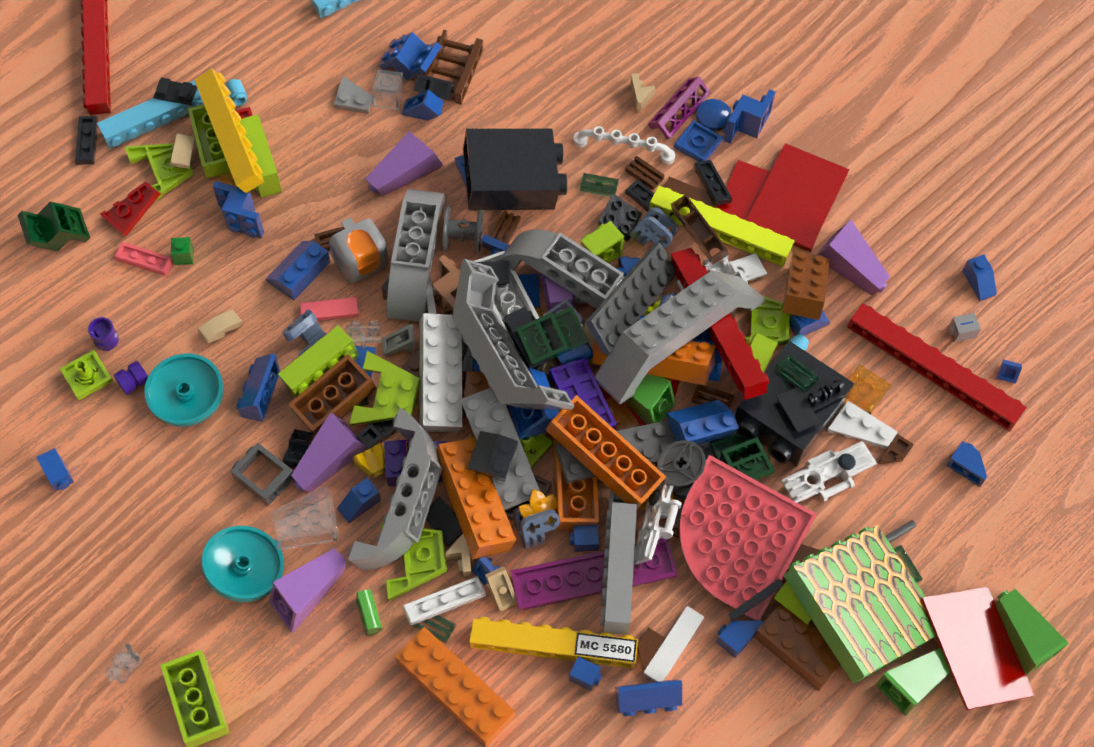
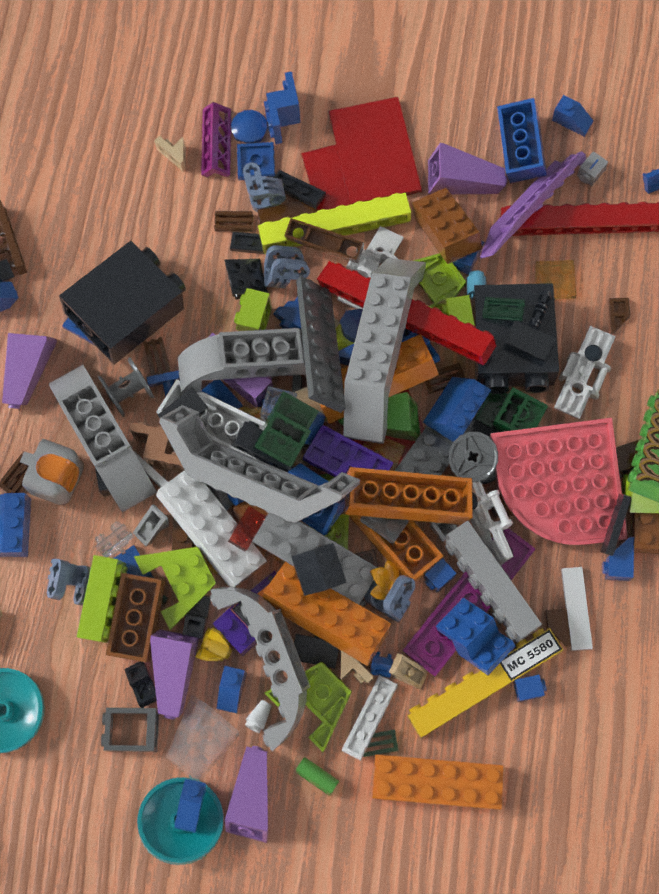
camera: 30 degrees left, 10 degrees up
(258, 555) = (190, 805): none -> blue slope
(259, 388) = (65, 658): blue slope -> none
(332, 308) = (67, 540): coral tile -> none
(362, 535) = (258, 717): none -> white cone
(463, 389) = (246, 528): none -> clear red plate
(574, 600) = (475, 636): none -> blue bracket
(598, 134) = (155, 228): white bar -> none
(598, 187) = (209, 264): clear green tile -> none
(649, 697) = (593, 667): blue slope -> none
(685, 160) = (269, 189): none -> sand blue piece
(858, 424) = (577, 312): white wing -> none
(891, 314) = (529, 202): none -> medium lavender hinge
(921, 266) = (521, 140): none -> blue brick

